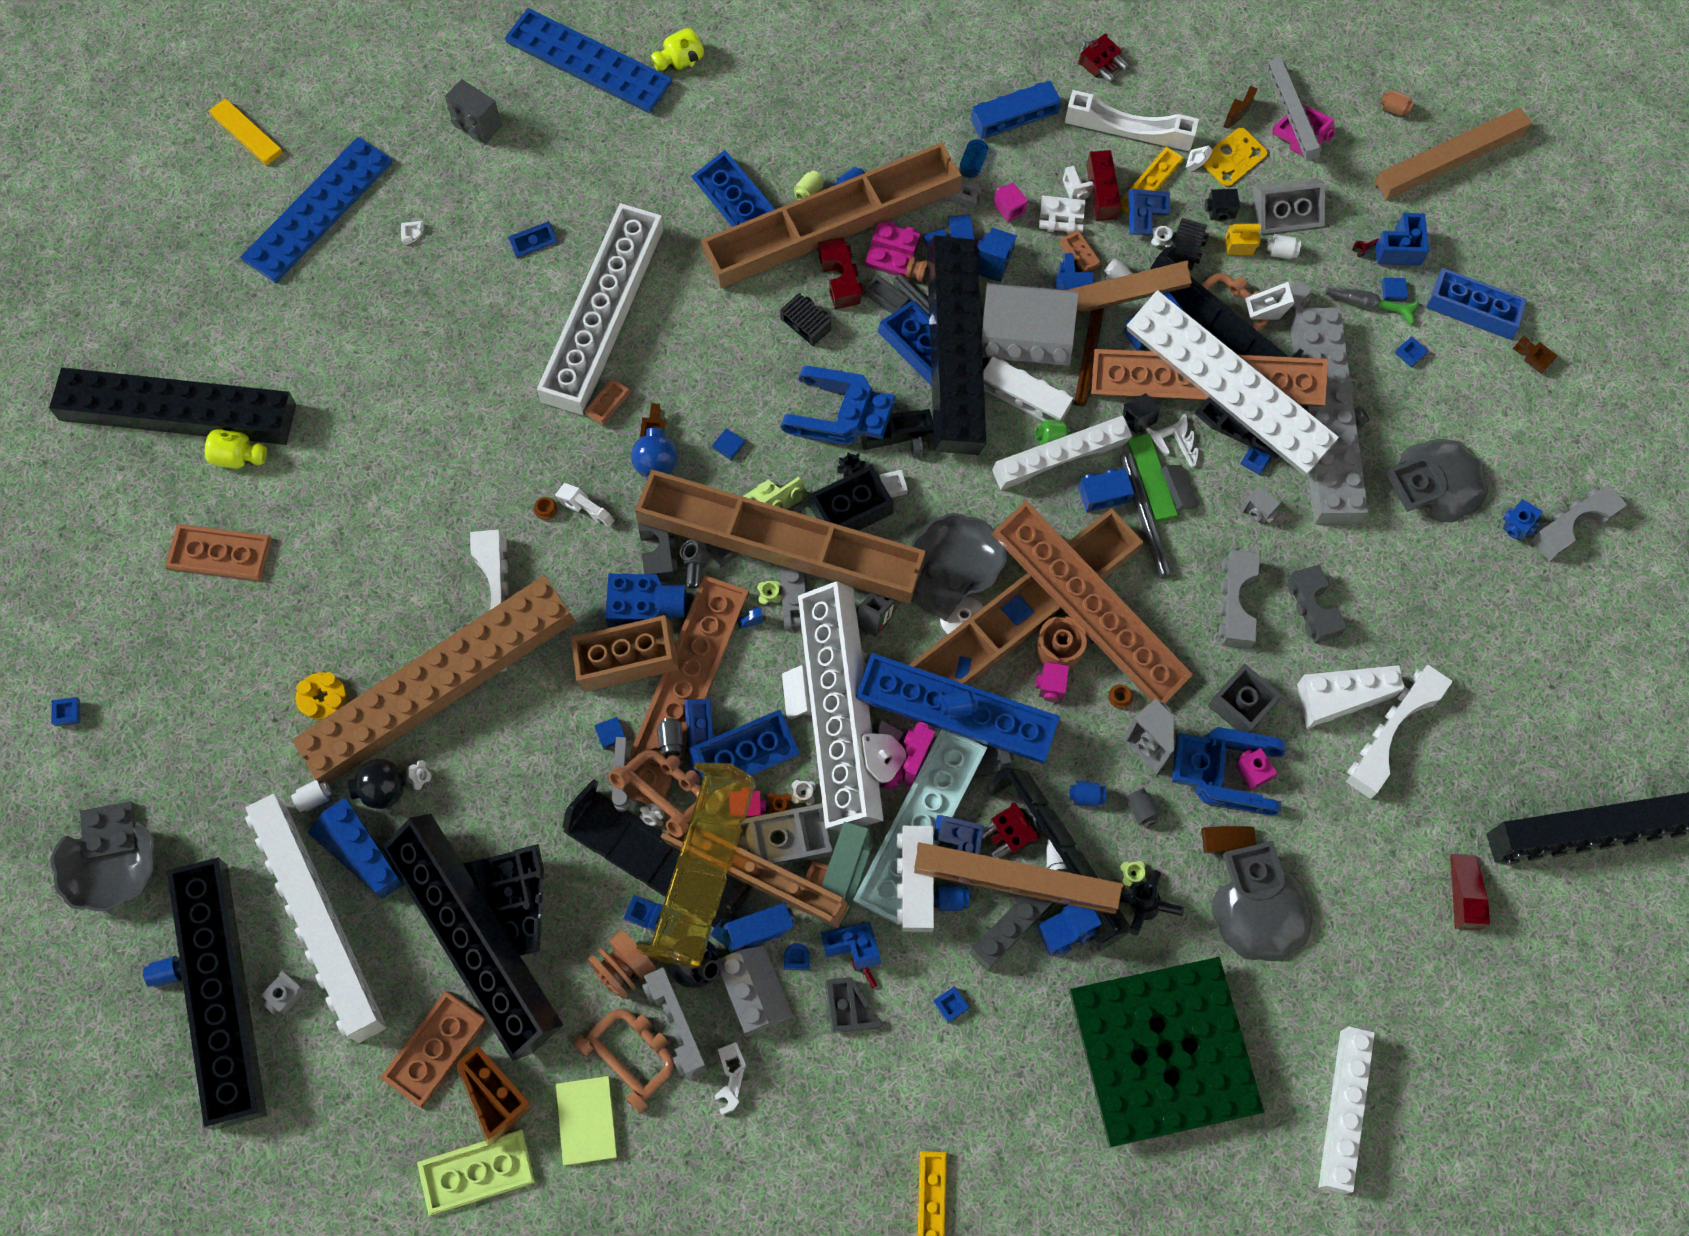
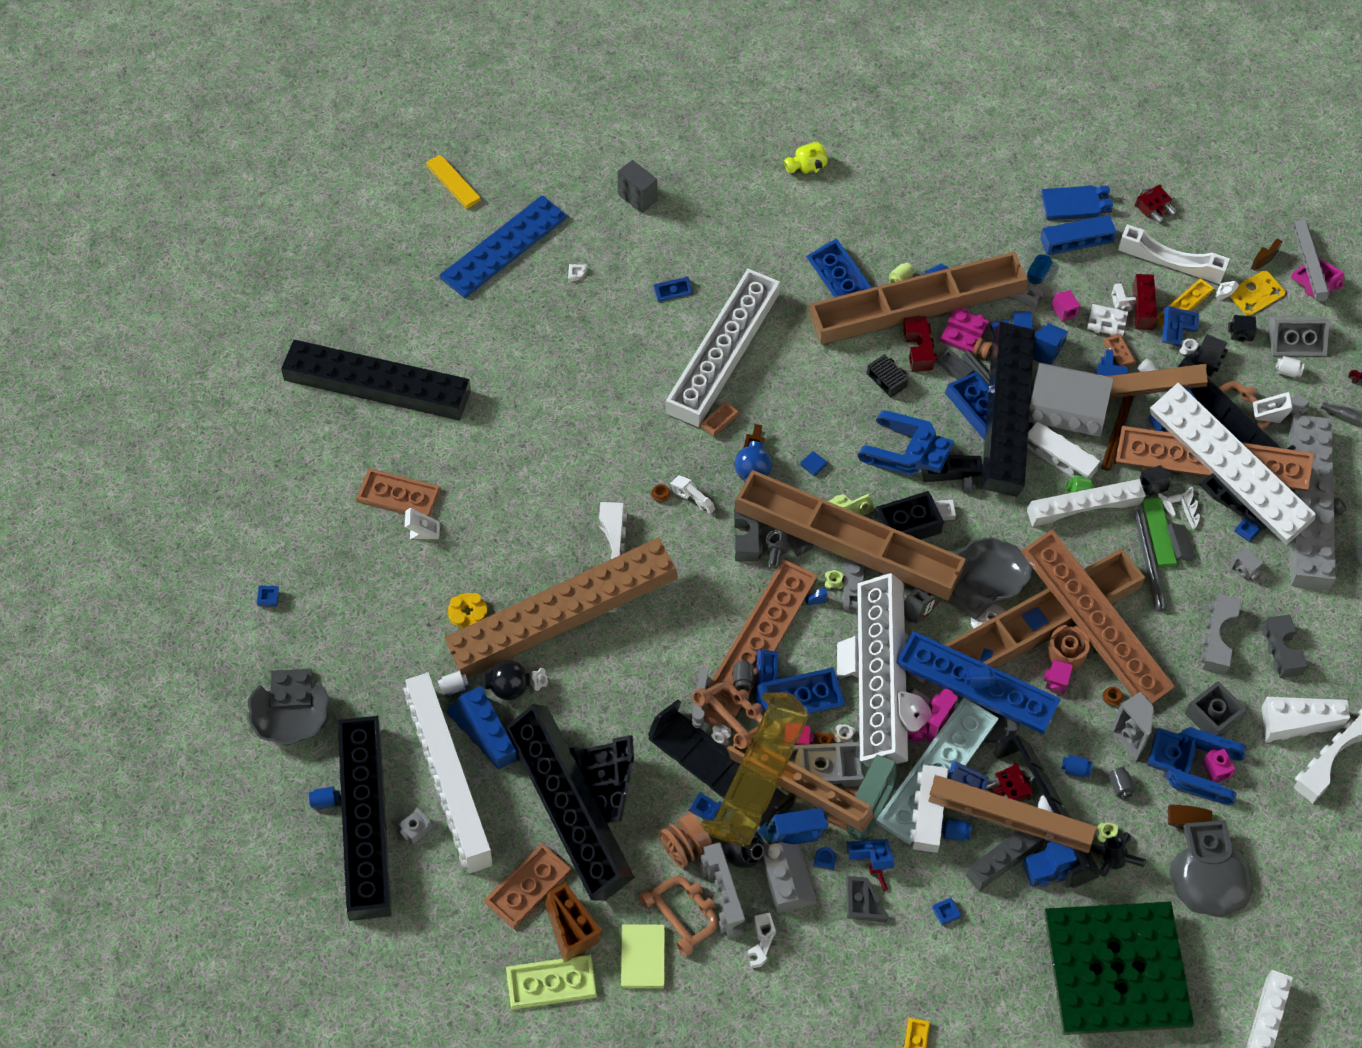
camera: 10 degrees right, 10 degrees down
(232, 449) = (418, 418): neon yellow piece -> none
(250, 591) = (421, 525): none -> white slope
(588, 60) = (733, 158): blue plate -> none
(608, 731) = (692, 668): blue tile -> none
(624, 653) = (713, 608): medium nougat brick -> none
(641, 598) = (731, 572): blue brick -> none
(848, 460) = (910, 489): black gear -> none
(1008, 67) = (1076, 202): none -> blue tile
(1105, 490) = (1119, 535): blue brick -> none
(1242, 239) = (1256, 356): yellow brick -> none

